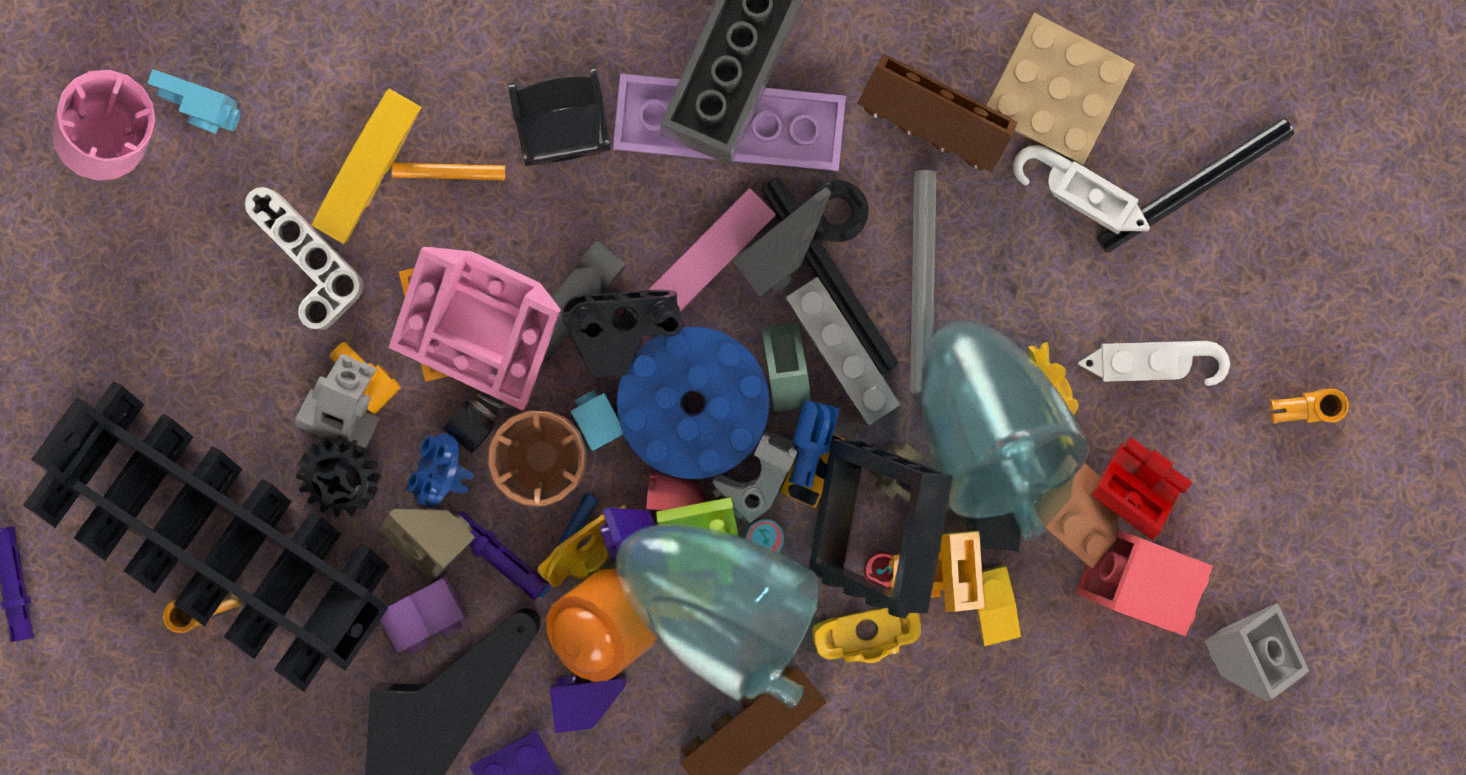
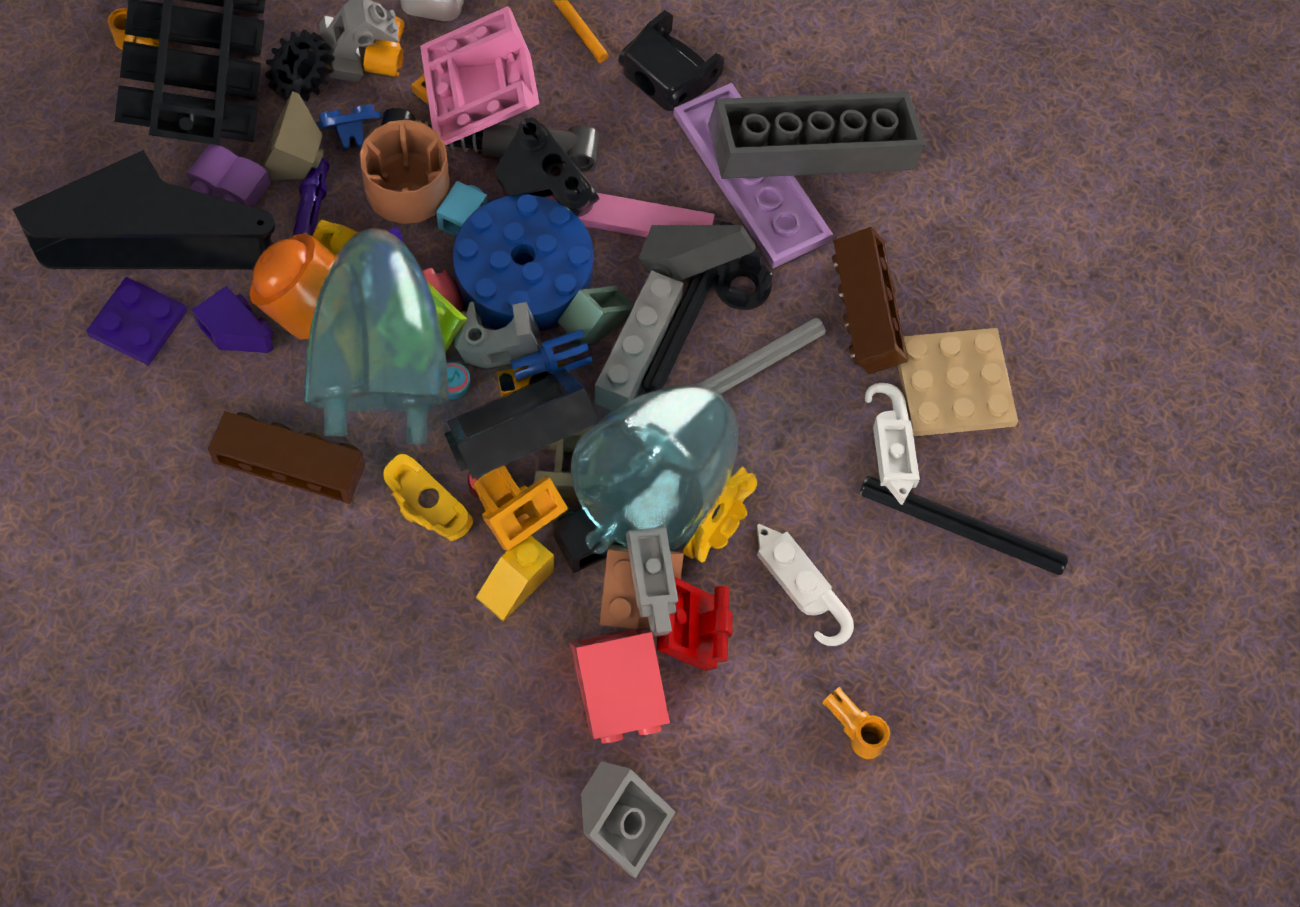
camera: 50 degrees right, 25 degrees down
(1098, 508) = (653, 577): none -> light grey hinge

